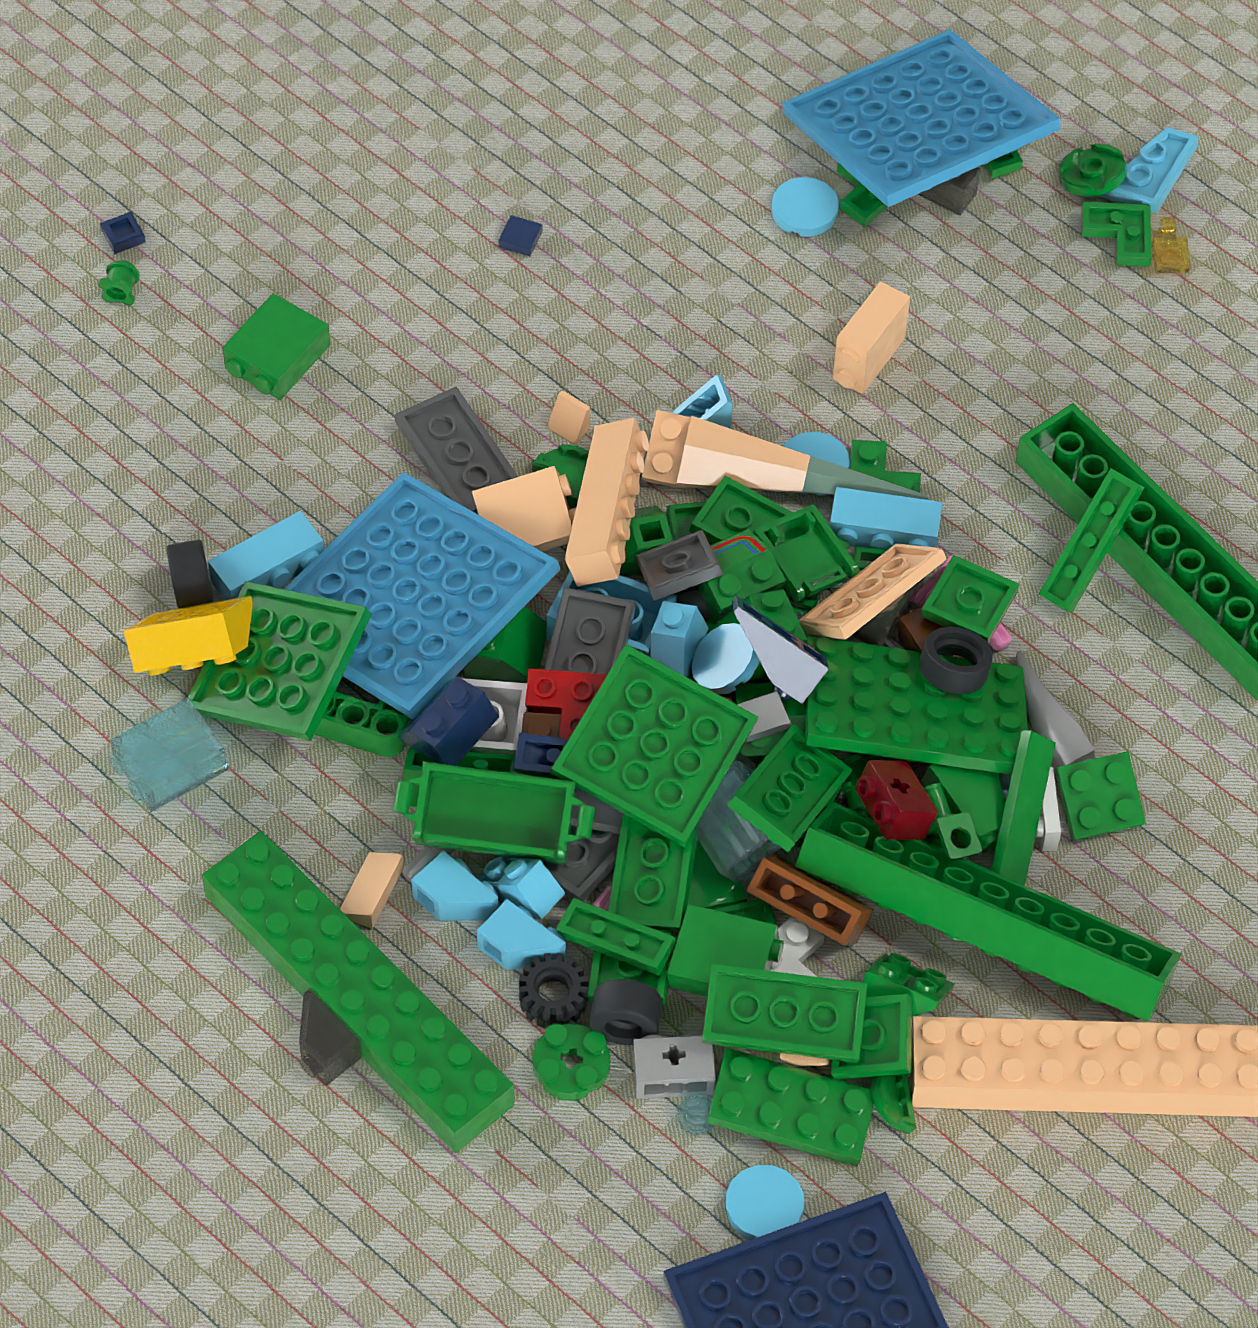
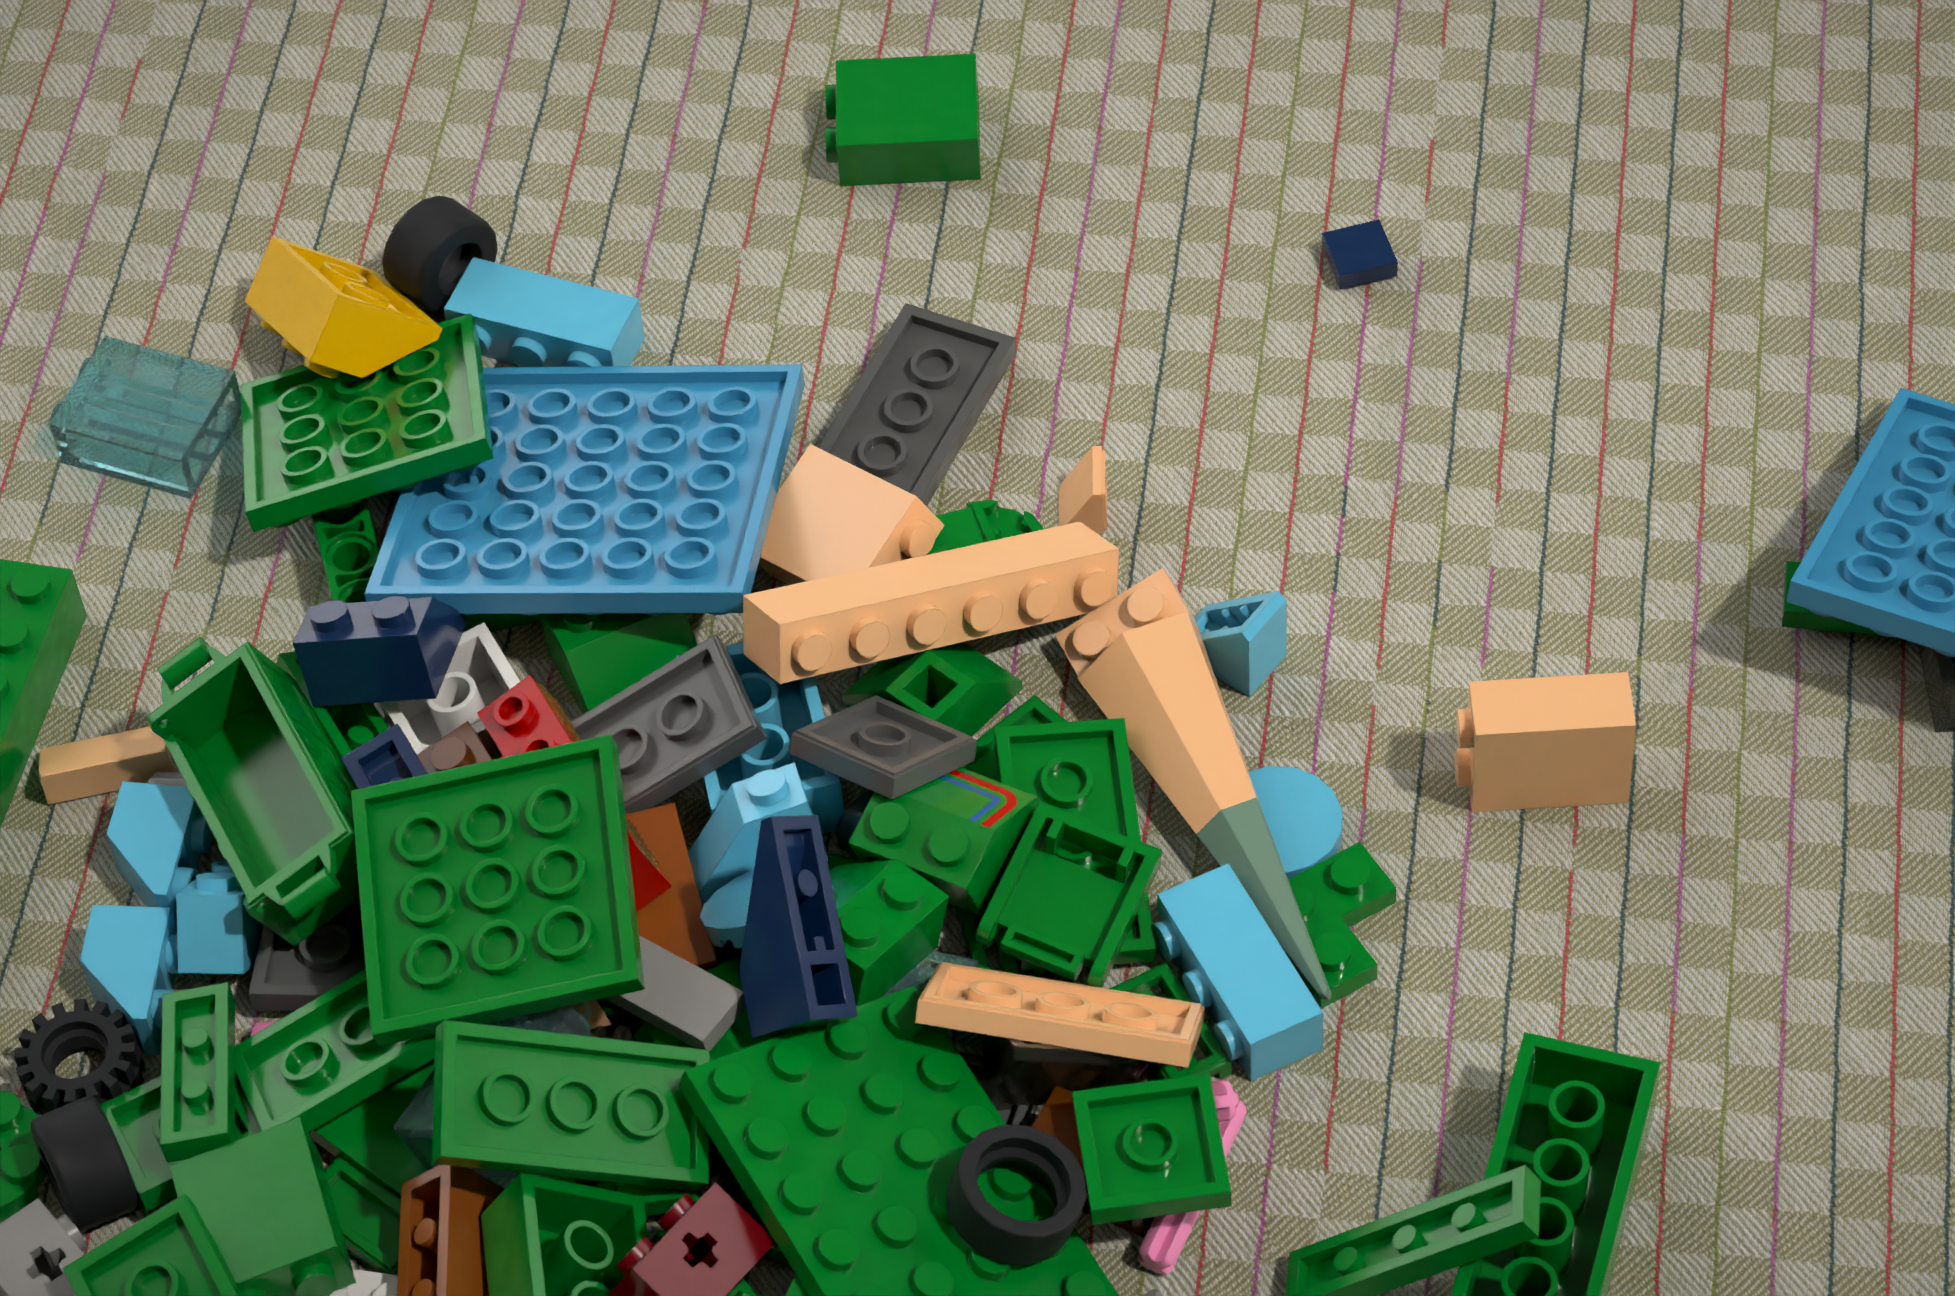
camera: 60 degrees right, 5 degrees down
(805, 206) = (1744, 532): medium azure tile -> none

